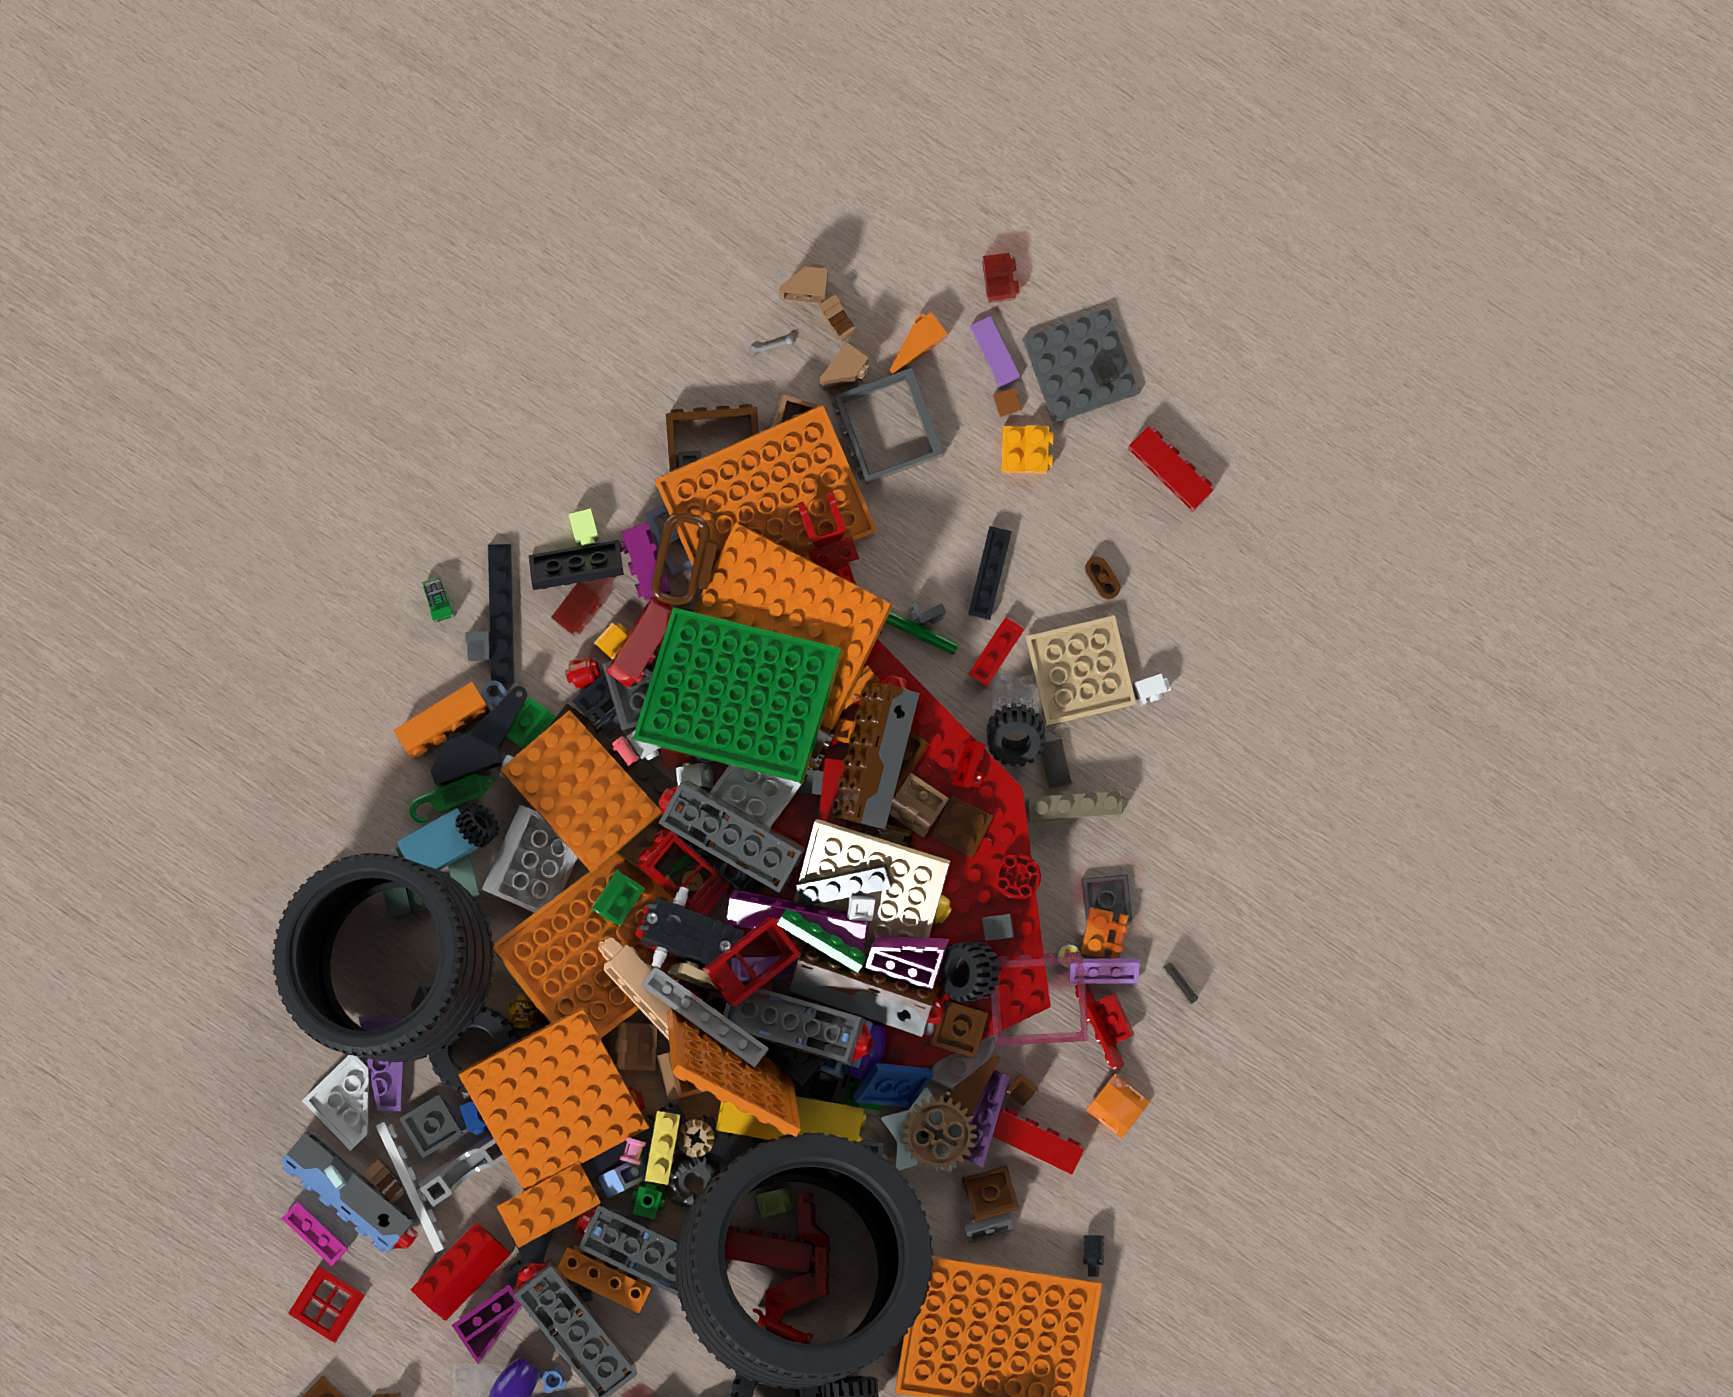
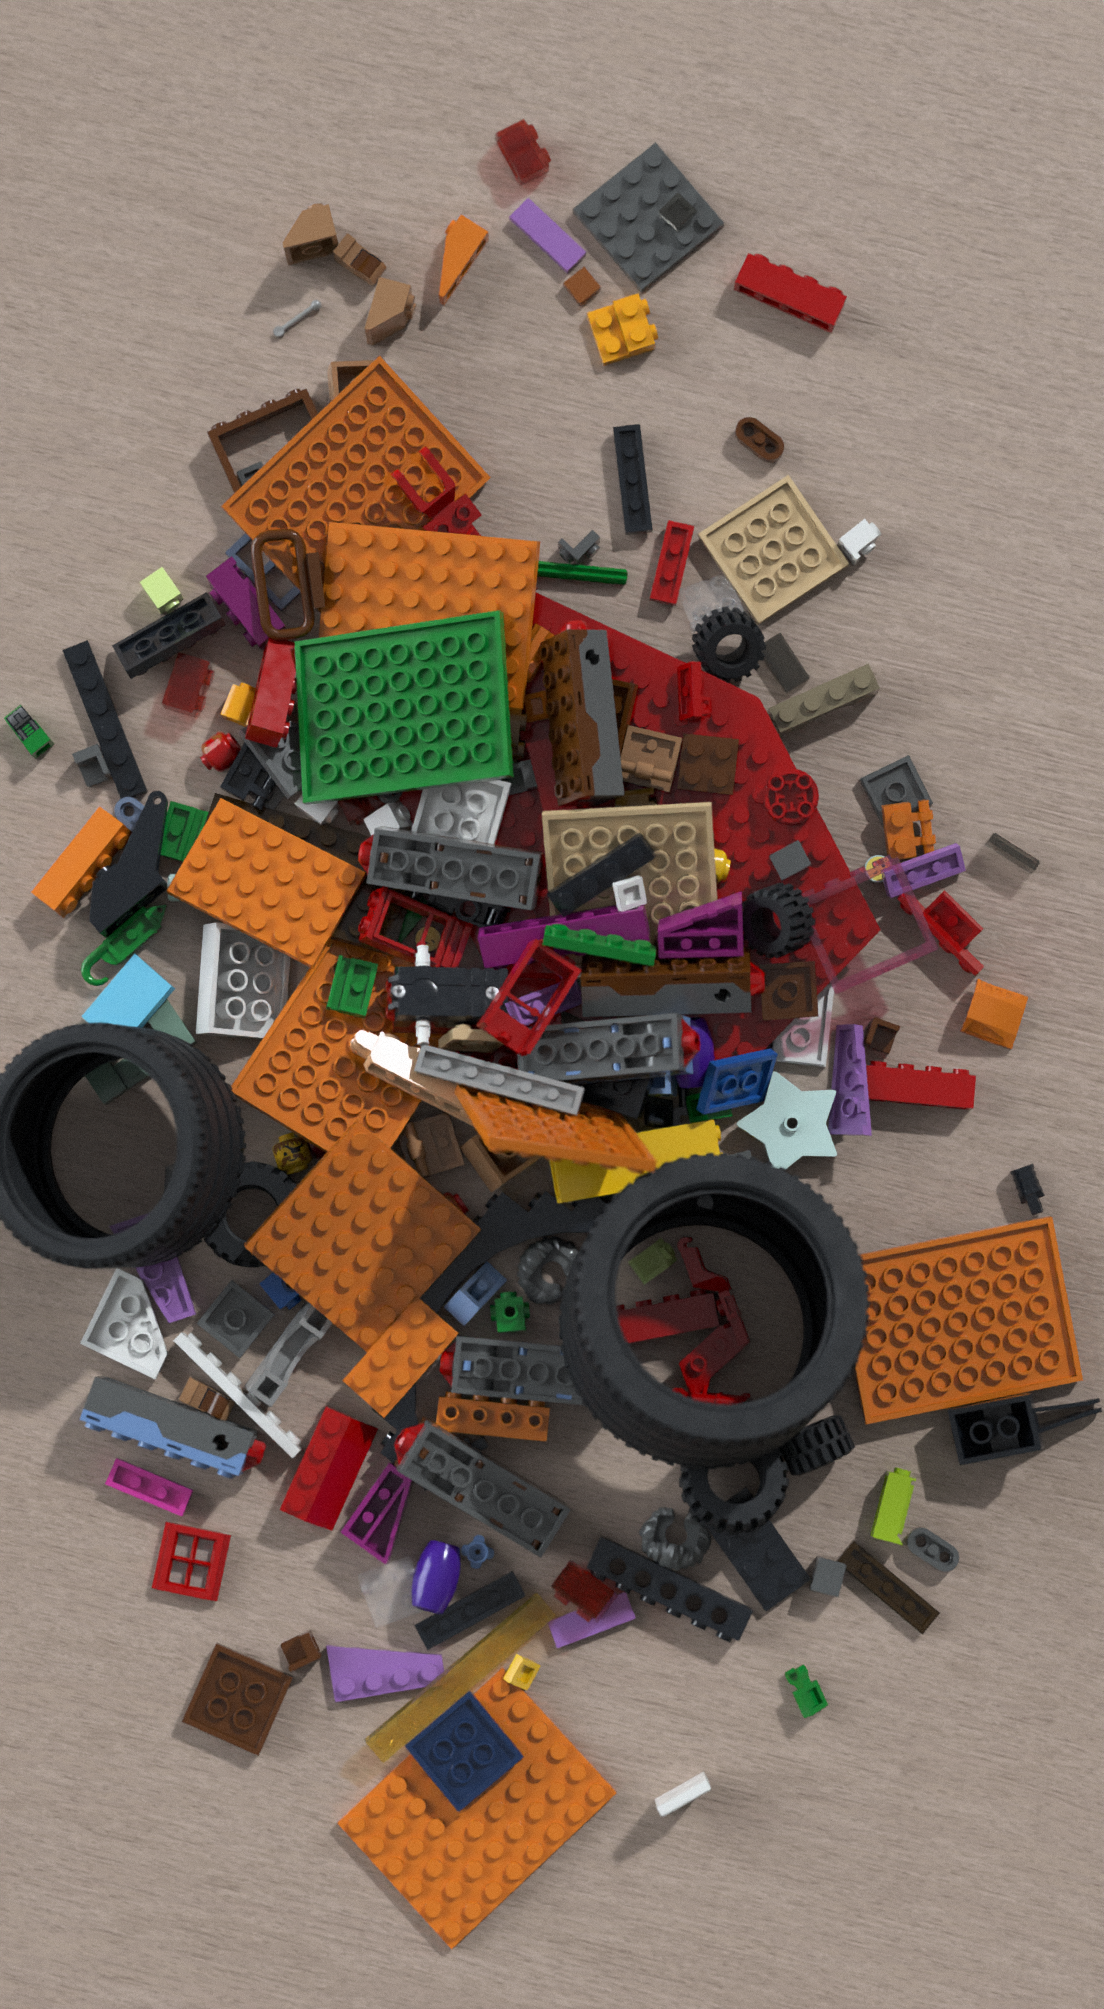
camera: 15 degrees left, 0 degrees up
(335, 1177) = (148, 1413): light aqua tile -> none
(477, 825) = (164, 963): black tyre -> none
(625, 750) = (300, 820): coral pin -> none
(633, 1151) = (472, 1261): bright pink bush -> none
(663, 1147) = (505, 1245): light yellow brick -> none
(706, 1135) = (529, 1212): tan gear -> none
(923, 414) = (462, 296): dark grey window -> none
(950, 1115) = (802, 1141): medium nougat gear -> none
(971, 1088) = (822, 1061): reddish brown slope -> none
(988, 1227) = (899, 1203): dark grey plate -> none
(990, 1193) = (890, 1163): reddish brown tile -> none

